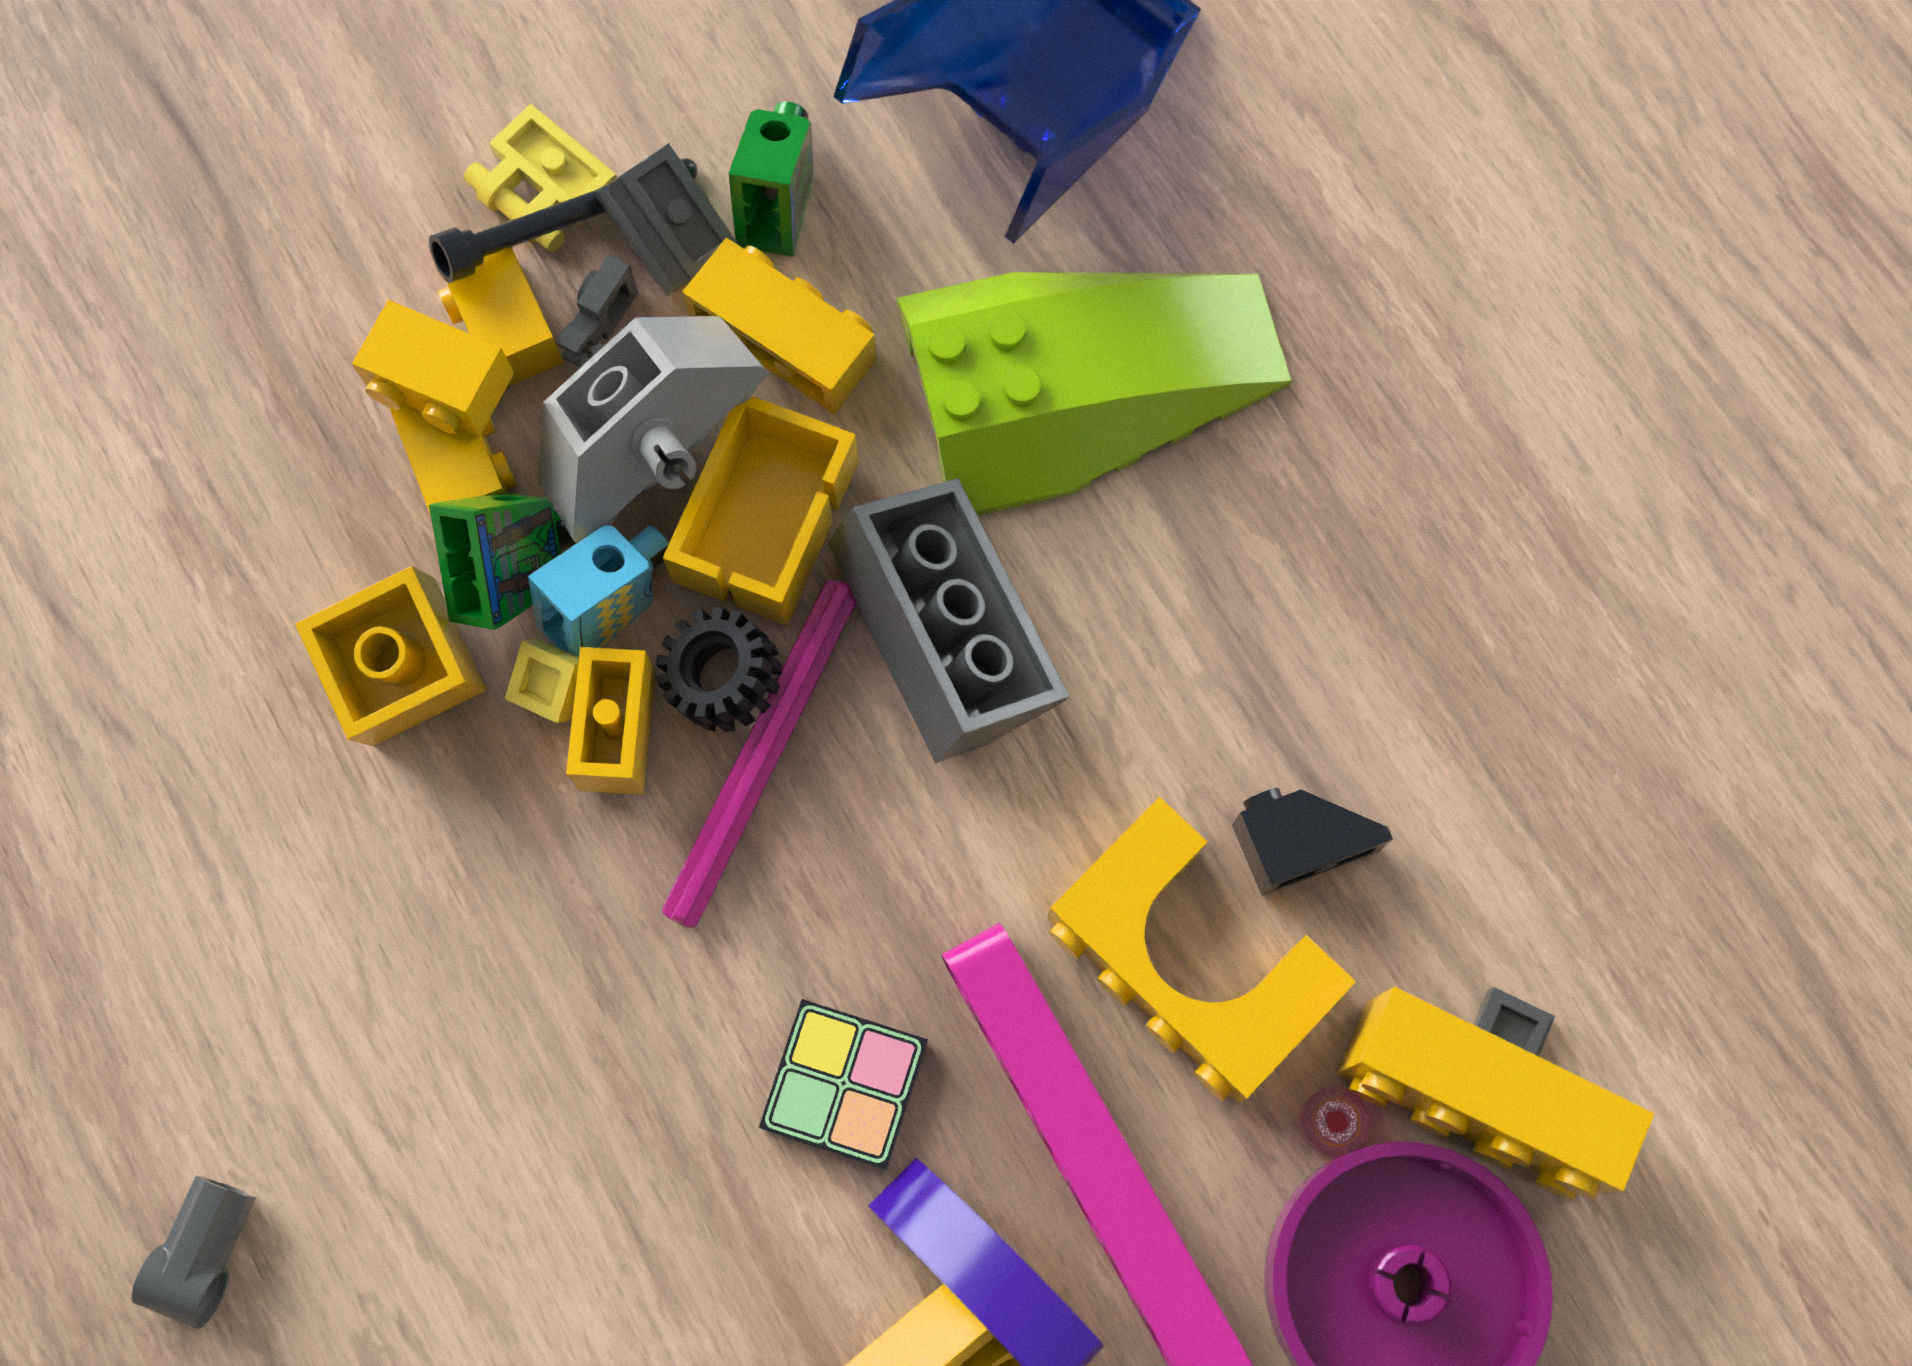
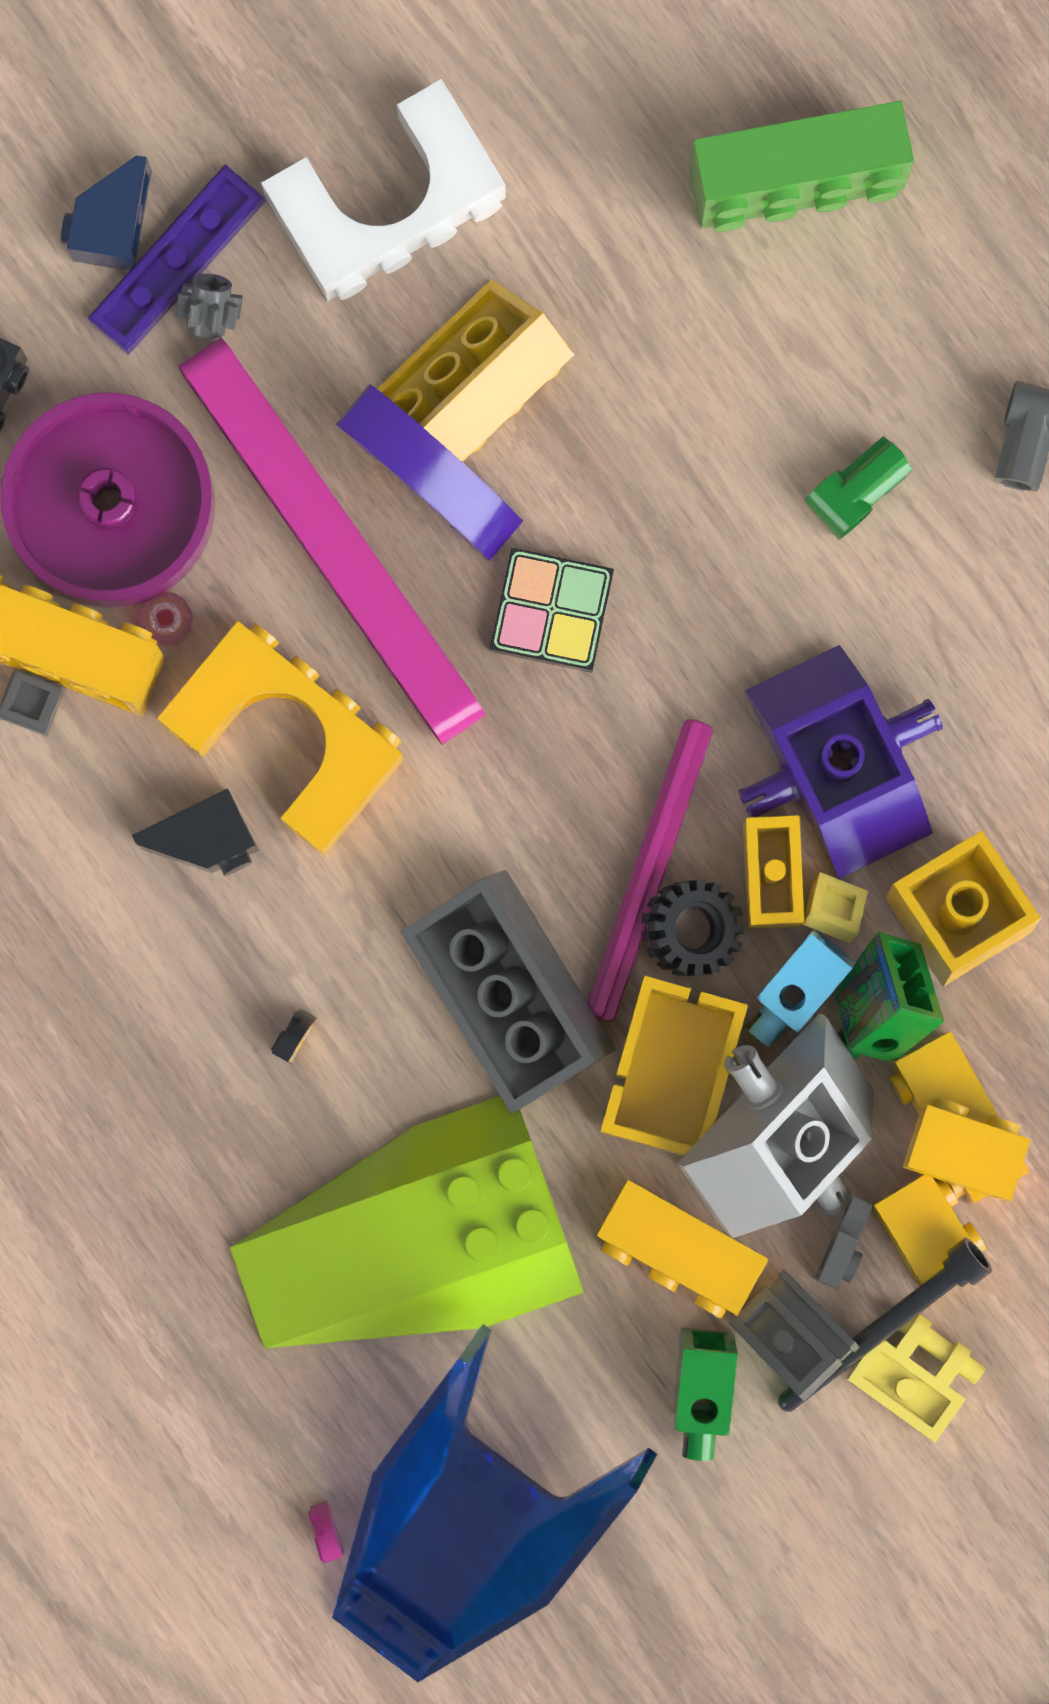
camera: 175 degrees right, 10 degrees up
(445, 1193) = (848, 495): none -> green piece
(523, 915) = (853, 812): none -> dark purple slope
(1198, 61) = (327, 1536): none -> dark pink tile
(1206, 596) = (293, 1037): none -> black tile

